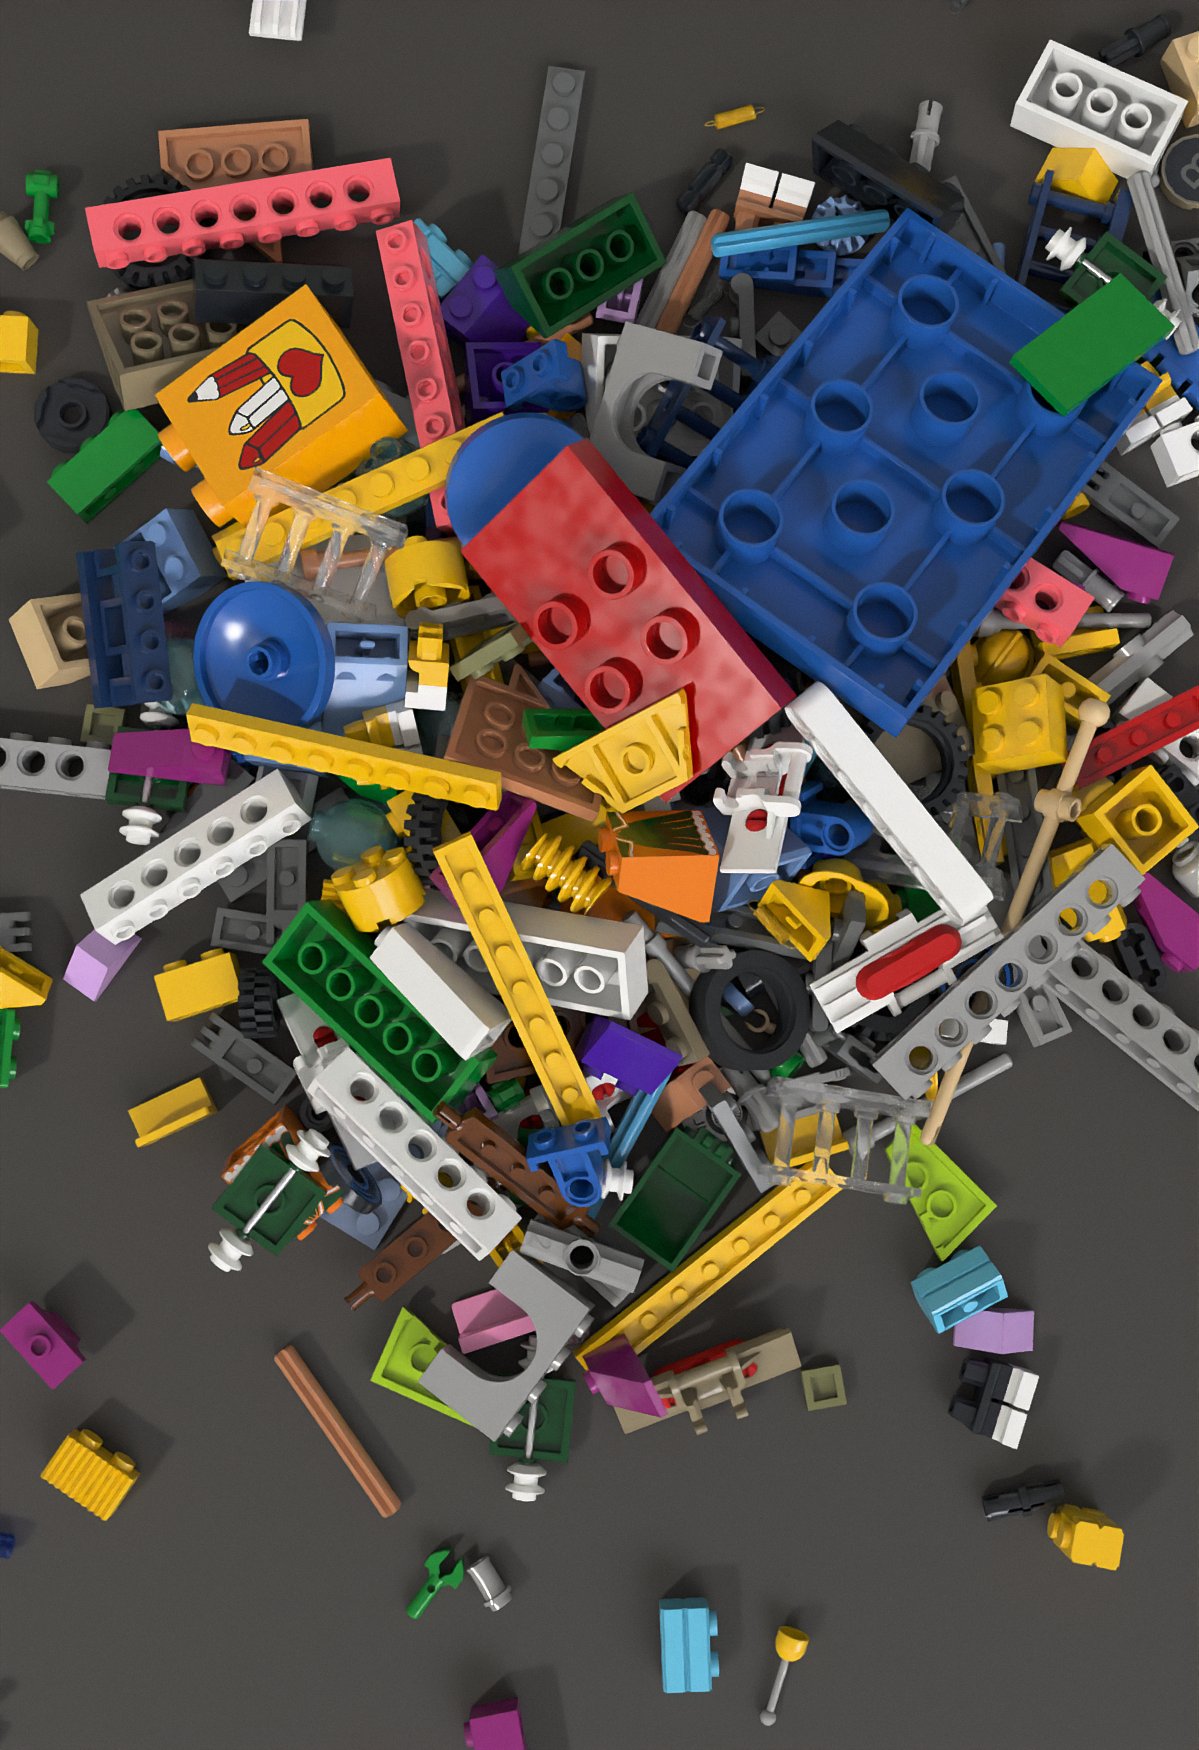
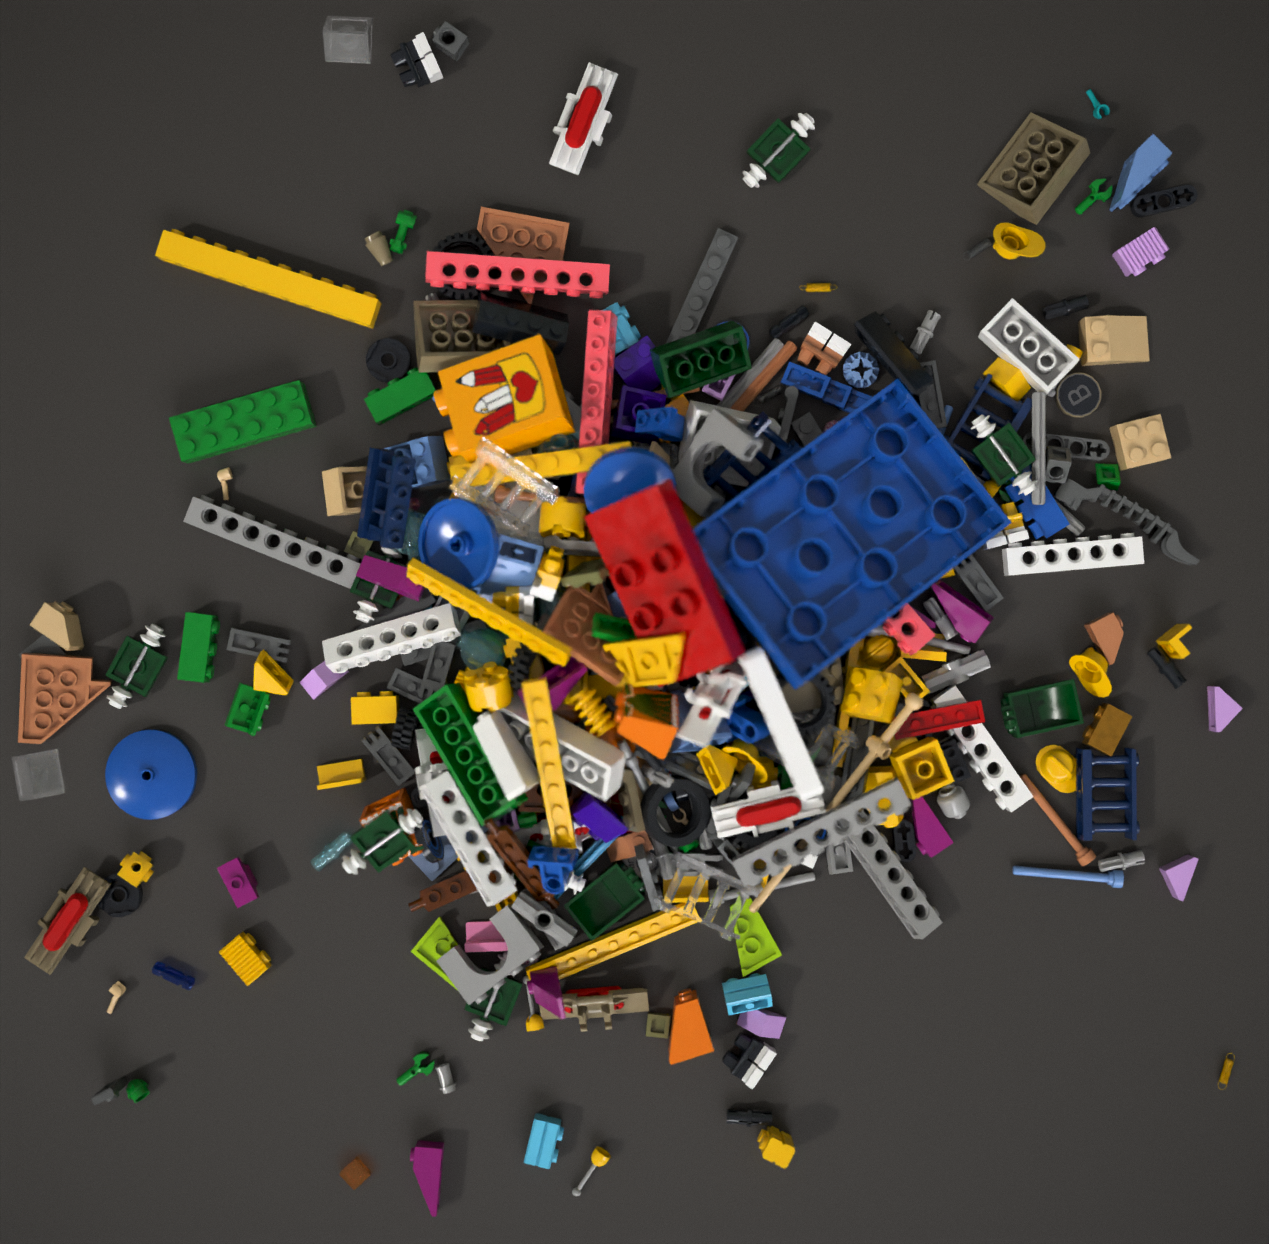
camera: 25 degrees right, 5 degrees up
(191, 1248) = (331, 851): none -> clear light blue pin
(337, 1431) = (385, 973): nougat axle -> none
(613, 1439) = (533, 1021): none -> yellow hinge
(772, 924) = (700, 768): yellow piece -> none
(799, 232) = (831, 372): dark azure axle -> none
(878, 1376) = (688, 1029): none -> orange slope
(1091, 344) = (976, 491): green tile -> none

